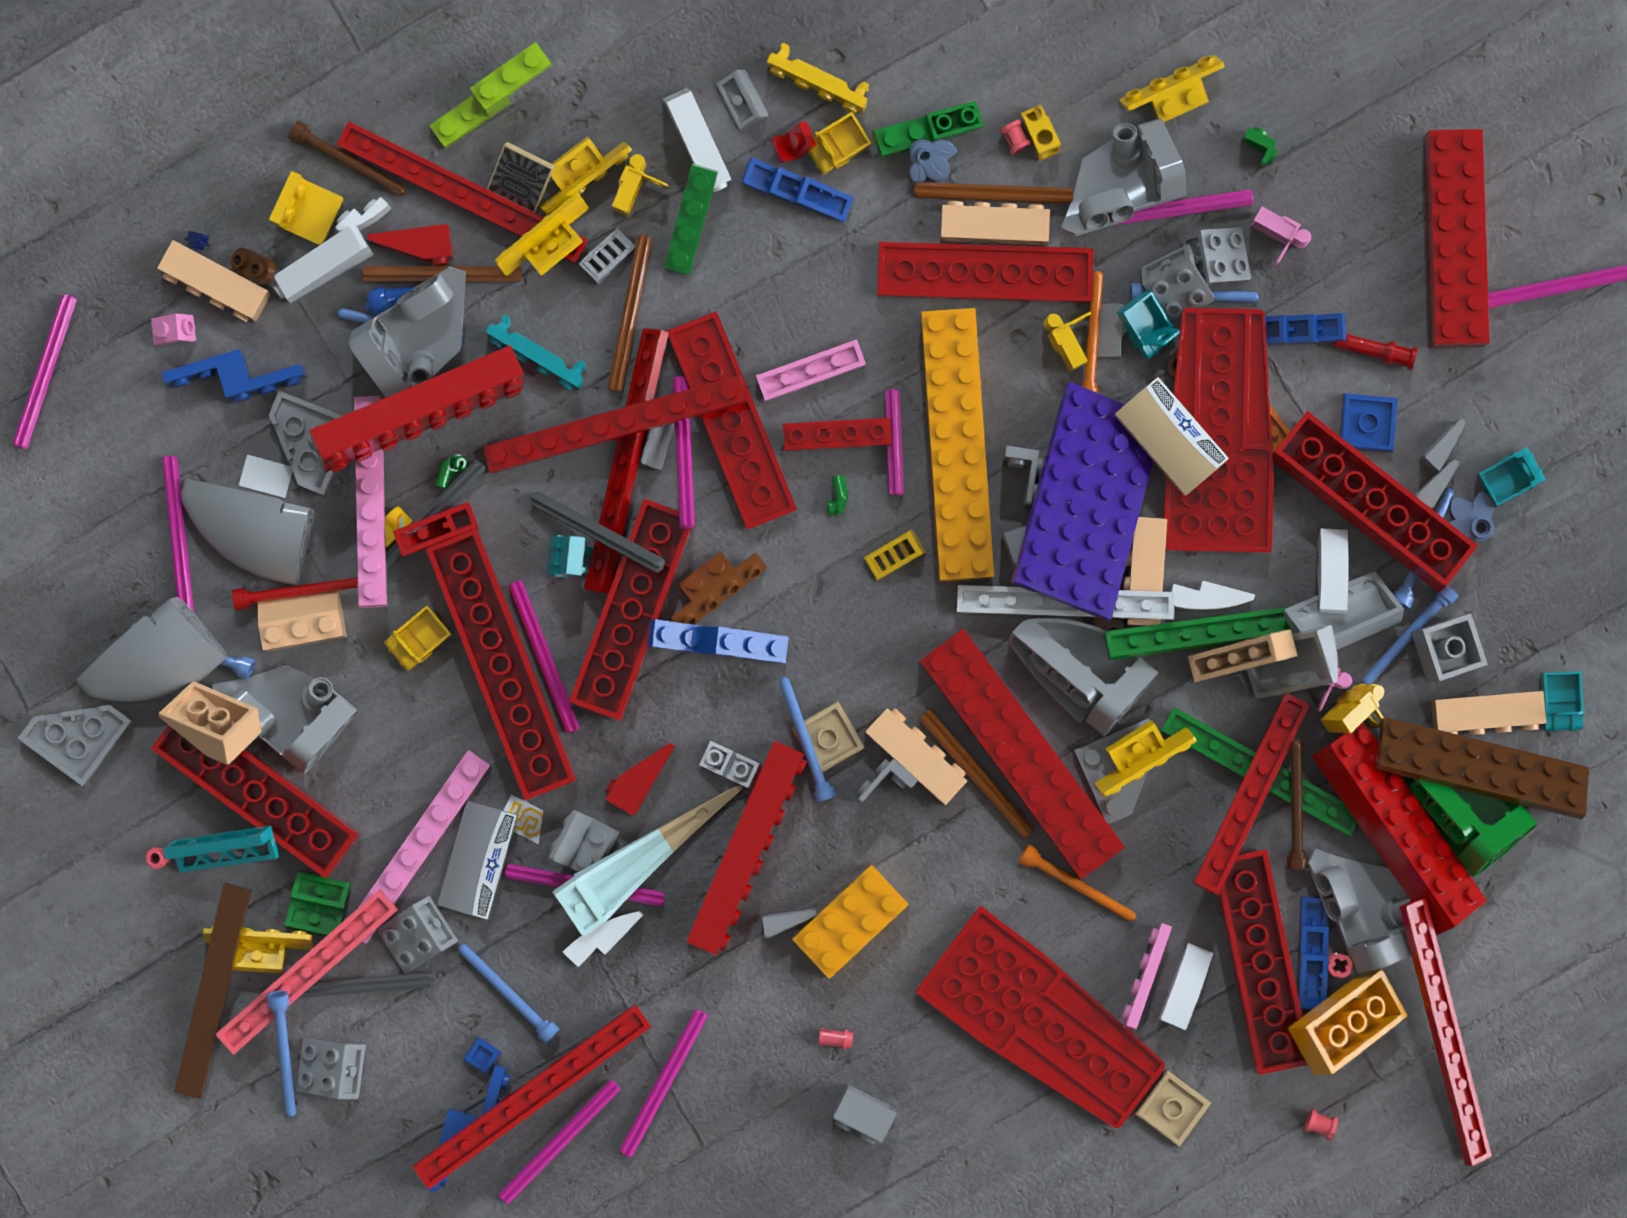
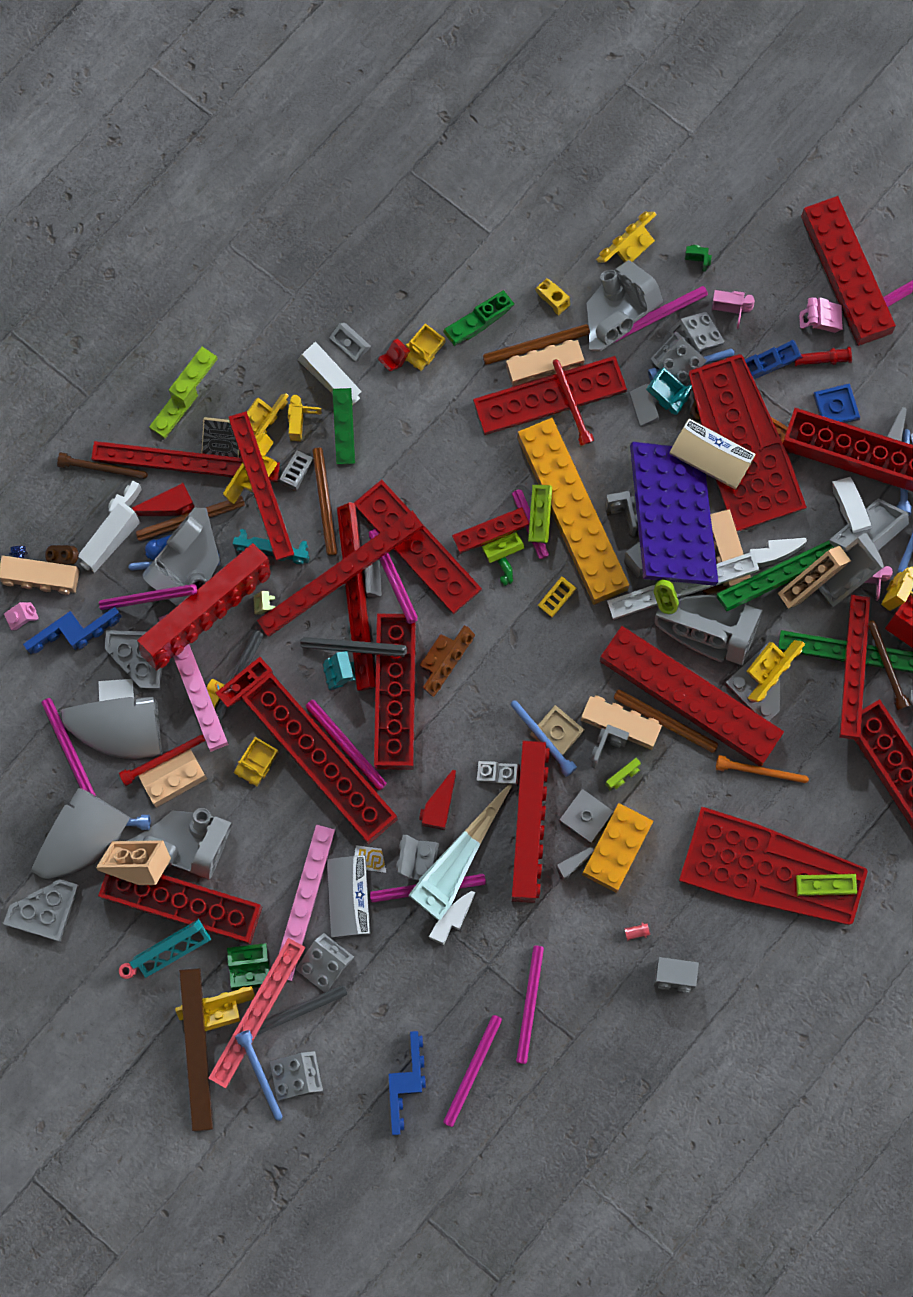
camera: 15 degrees left, 10 degrees down
(306, 209) = (84, 507): yellow bracket -> none
(347, 369) = (148, 597): none -> dark pink axle
(449, 467) = (237, 642): green arm -> none
(482, 1055) = (398, 1030): blue tile -> none
(498, 425) = (261, 602): none -> yellowish green tile
(531, 1096) = (442, 1044): red plate -> none
(544, 1029) = (435, 996): medium blue piece -> none
(548, 268) = (261, 486): none -> red plate
(717, 641) = (460, 691): bracket -> none
(797, 190) = (407, 386): blue slope -> none
(810, 76) = (397, 312): yellow piece -> none
(811, 370) = (458, 496): bright pink plate -> none
(825, 863) = (586, 816): none -> light grey plate
(846, 462) = (503, 547): none -> lime plate
(883, 831) = (618, 779): none -> lime plate
(910, 436) = (540, 513): none -> lime tile
(933, 162) = (489, 338): sand blue plate -> none
(1011, 347) = (584, 436): none -> red piece
(1015, 137) = (537, 304): coral bush -> none
(1033, 615) = (666, 596): none -> lime plate
(1064, 340) = (618, 419): yellow piece -> none
(1093, 334) = (634, 407): orange piece -> none
(1104, 1066) = (826, 884): none -> lime tile
(1141, 987) = (831, 821): bright pink plate -> none
(1173, 1108) = (883, 898): tan tile -> none
(1186, 986) = (860, 812): white slope -> none
(1396, 291) = (822, 315): none -> bright pink piece
(1438, 453) = (890, 407): light grey slope -> none

